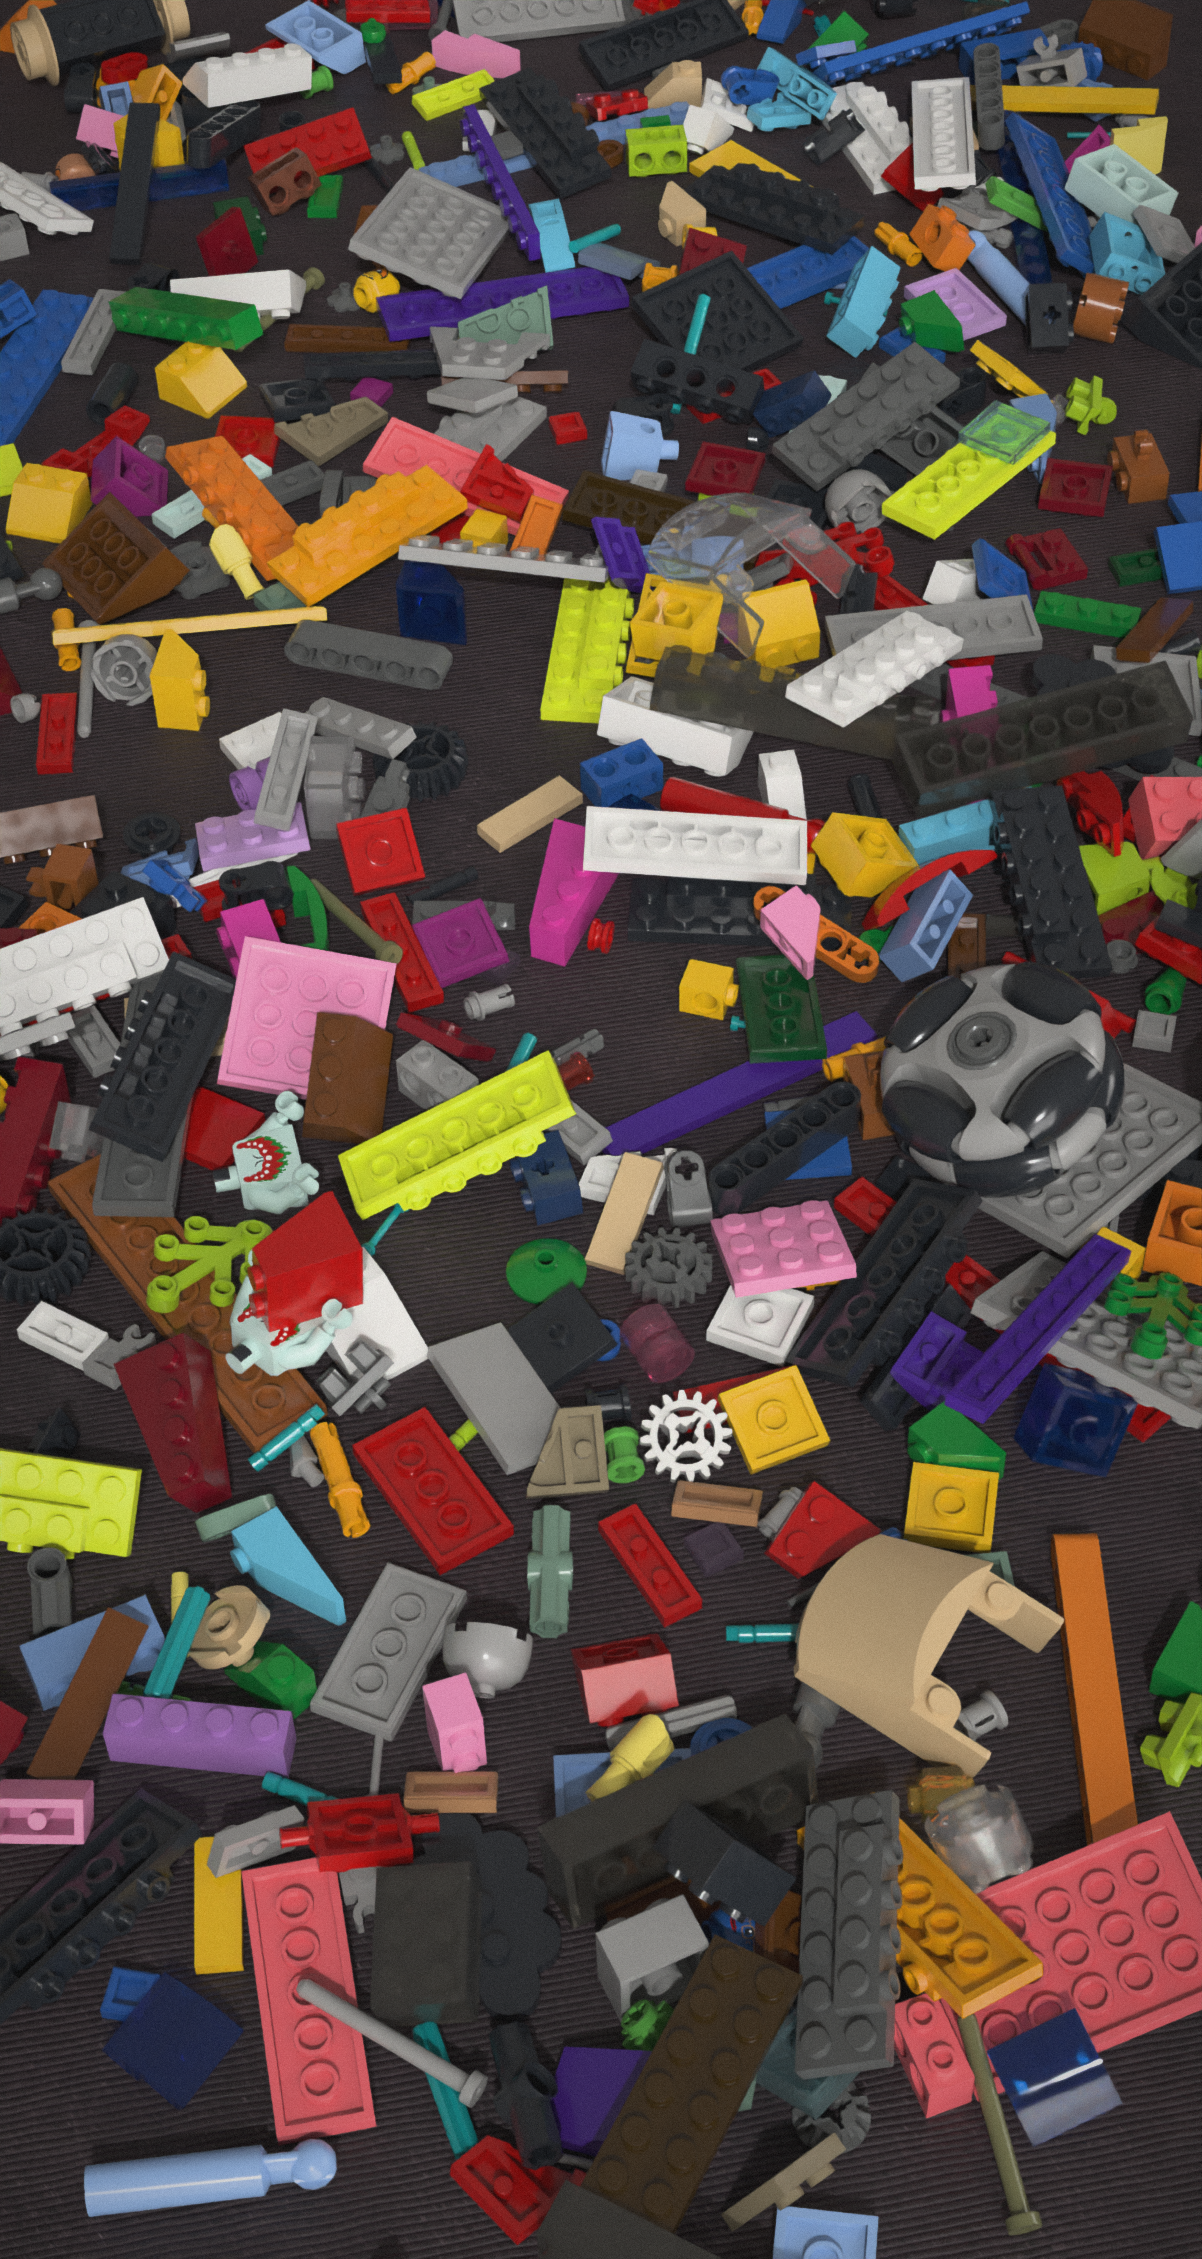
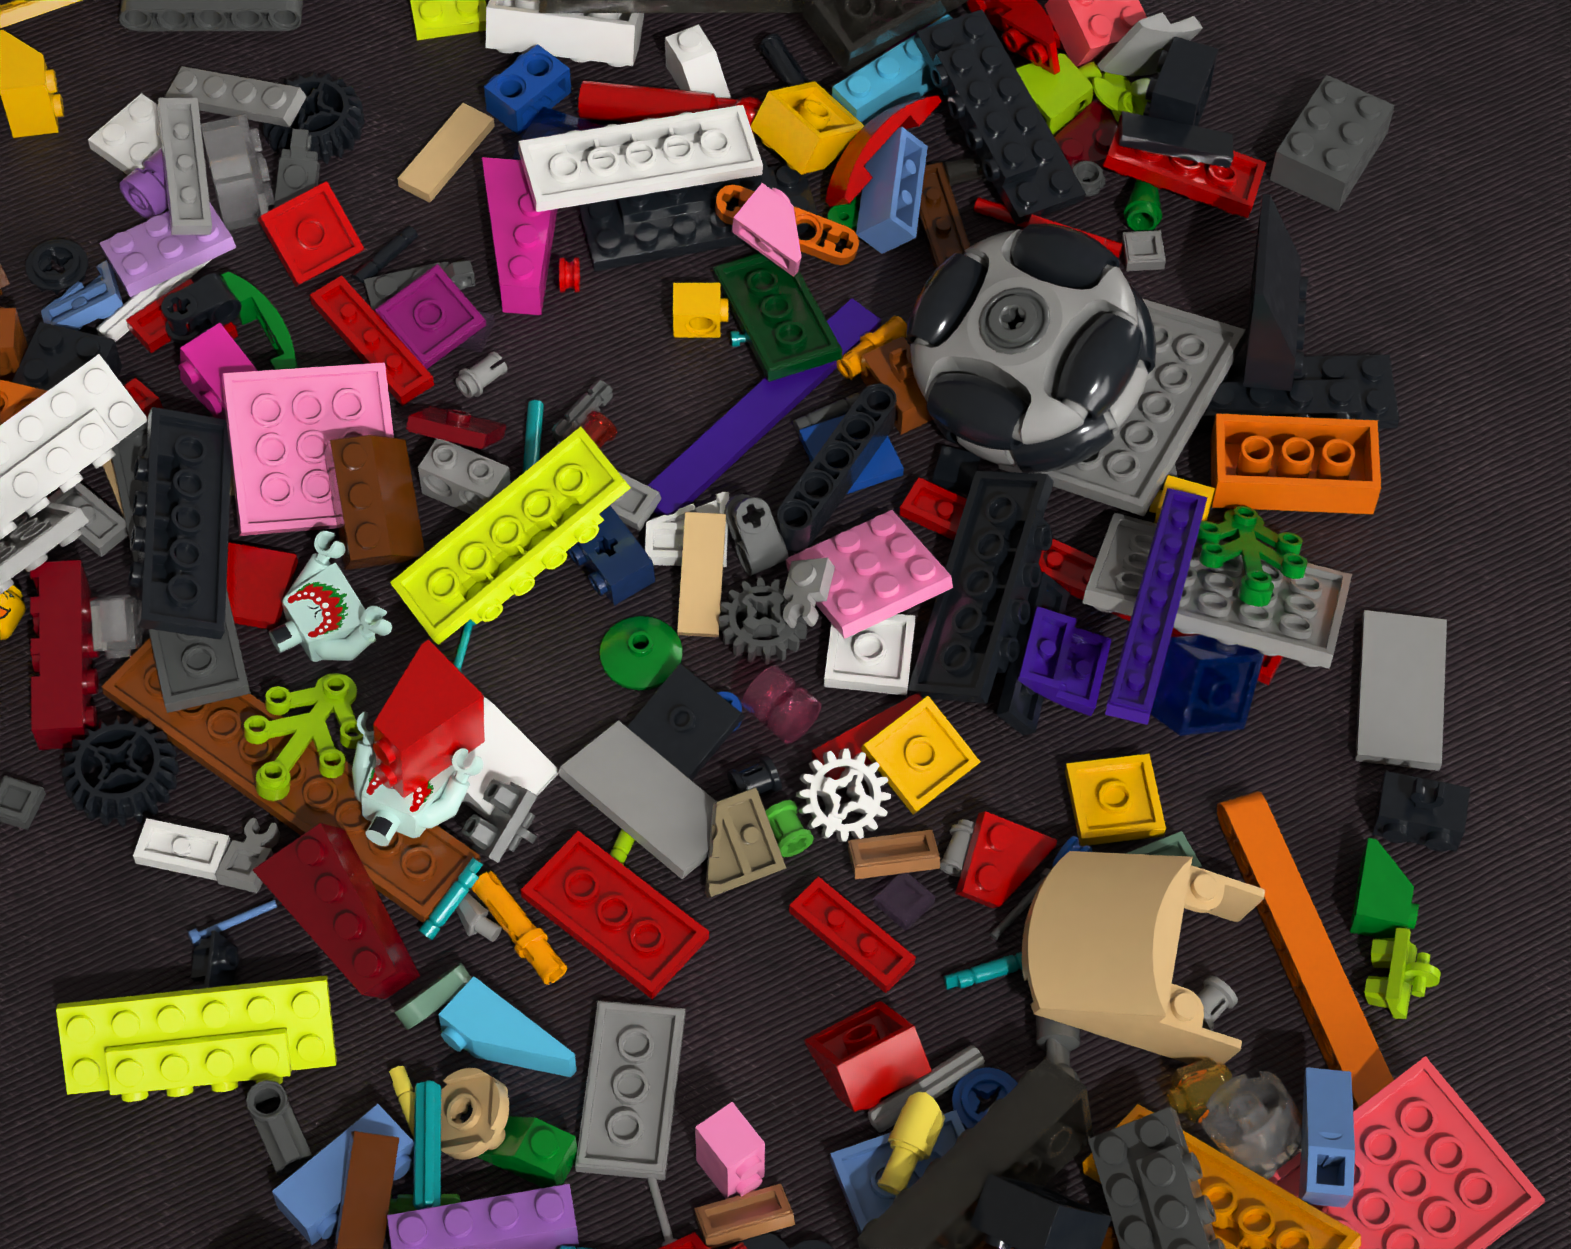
camera: 20 degrees left, 10 degrees up
(45, 1411) = (195, 936): none -> medium blue piece
(169, 881) = (106, 321): blue plate -> none
(384, 950) = (363, 347): olive bar -> none
(488, 1655) = (733, 1074): light grey cylinder -> none
(550, 1571) = (759, 967): sand green piece -> none
(715, 1242) = (805, 585): none -> light grey plate
(953, 1441) = (1092, 735): green slope -> none
(1041, 1864) = (1327, 1138): none -> medium blue slope

